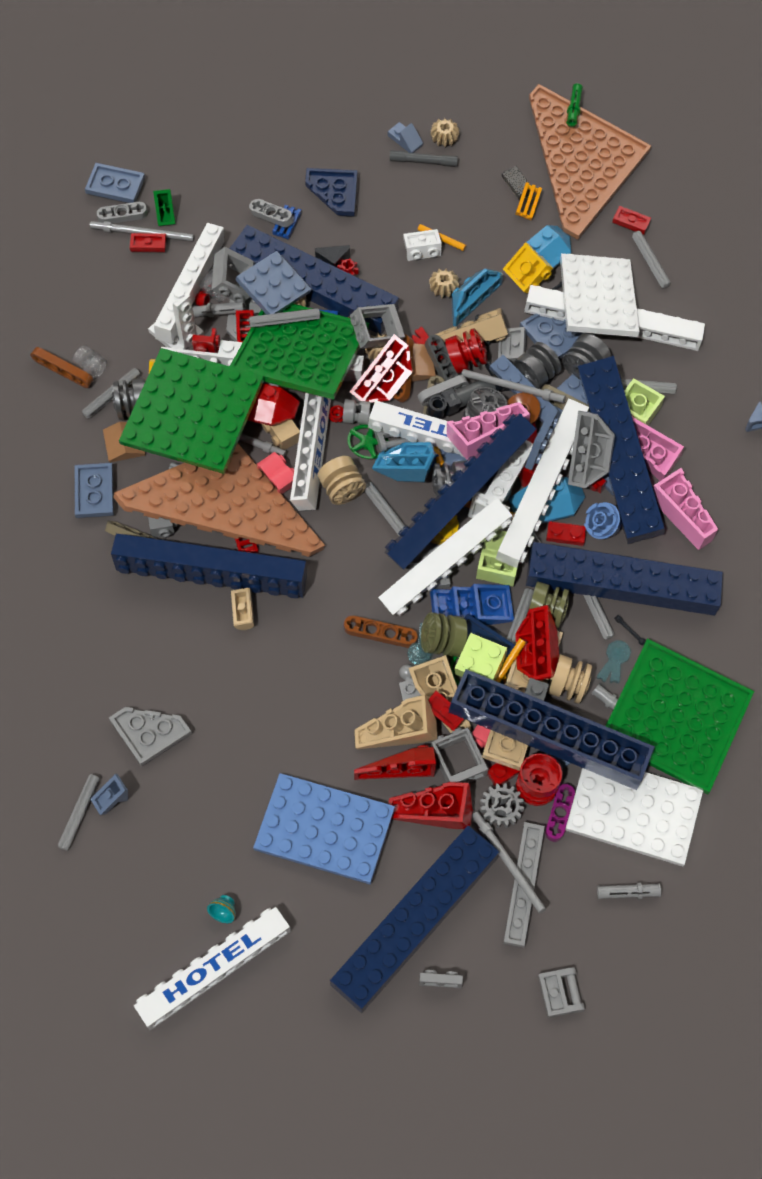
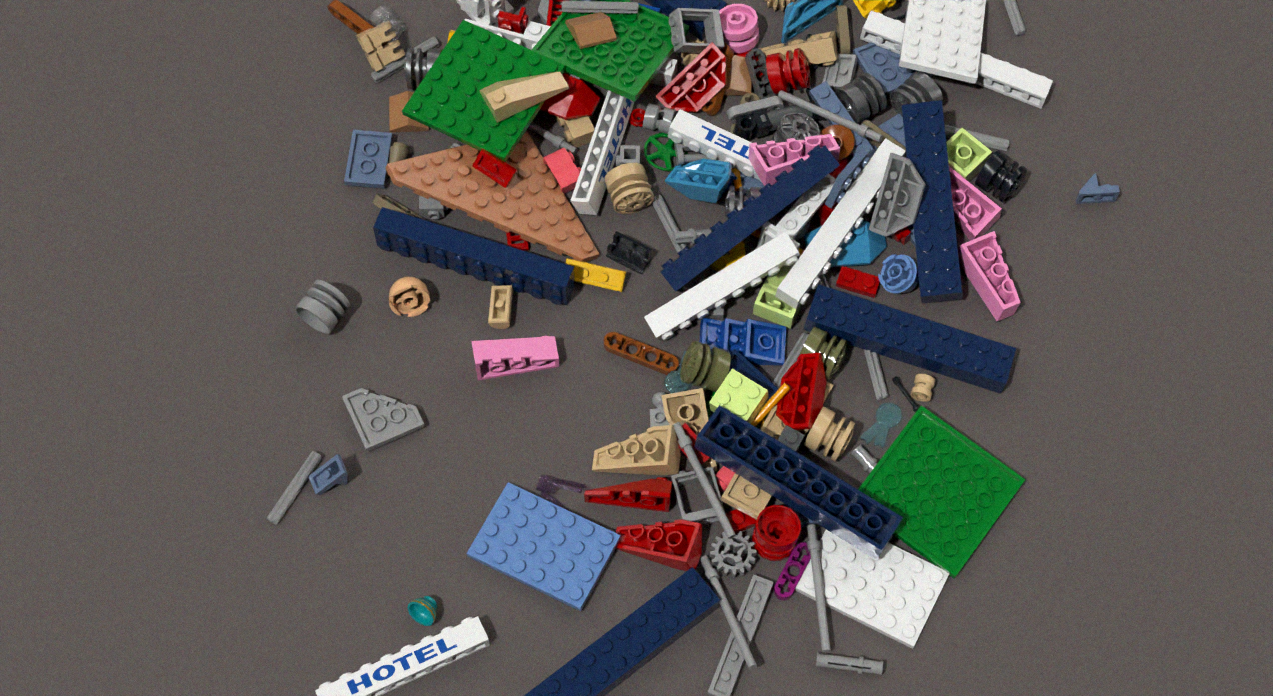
camera: 10 degrees right, 0 degrees up
(75, 636) = (322, 306): none -> light grey wheel
(85, 392) = (371, 44): none -> tan legs
(120, 480) = (398, 152): none -> dark tan cone
(155, 613) = (409, 296): none -> light nougat cylinder
(214, 480) = (494, 168): none -> red plate
(223, 410) = (518, 94): none -> tan wedge
(264, 653) = (514, 356): none -> bright pink wedge
(281, 339) = (591, 29): none -> medium nougat slope
(319, 768) = (549, 485): none -> clear purple plant
(327, 565) = (598, 275): none -> yellow tile
(335, 449) = (628, 154): none -> light grey brick
(352, 540) = (629, 253): none -> black hinge
(405, 515) = (688, 236): none -> light grey axle
(415, 317) = (739, 27): none -> bright pink wheel
(439, 710) = (685, 443): none -> light grey bar
(507, 306) = (842, 29): none -> dark tan beam
(575, 787) = (813, 547): none -> light grey bar
(644, 621) = (923, 387): none -> tan wheel
(676, 417) = (1003, 178): none -> black wheel

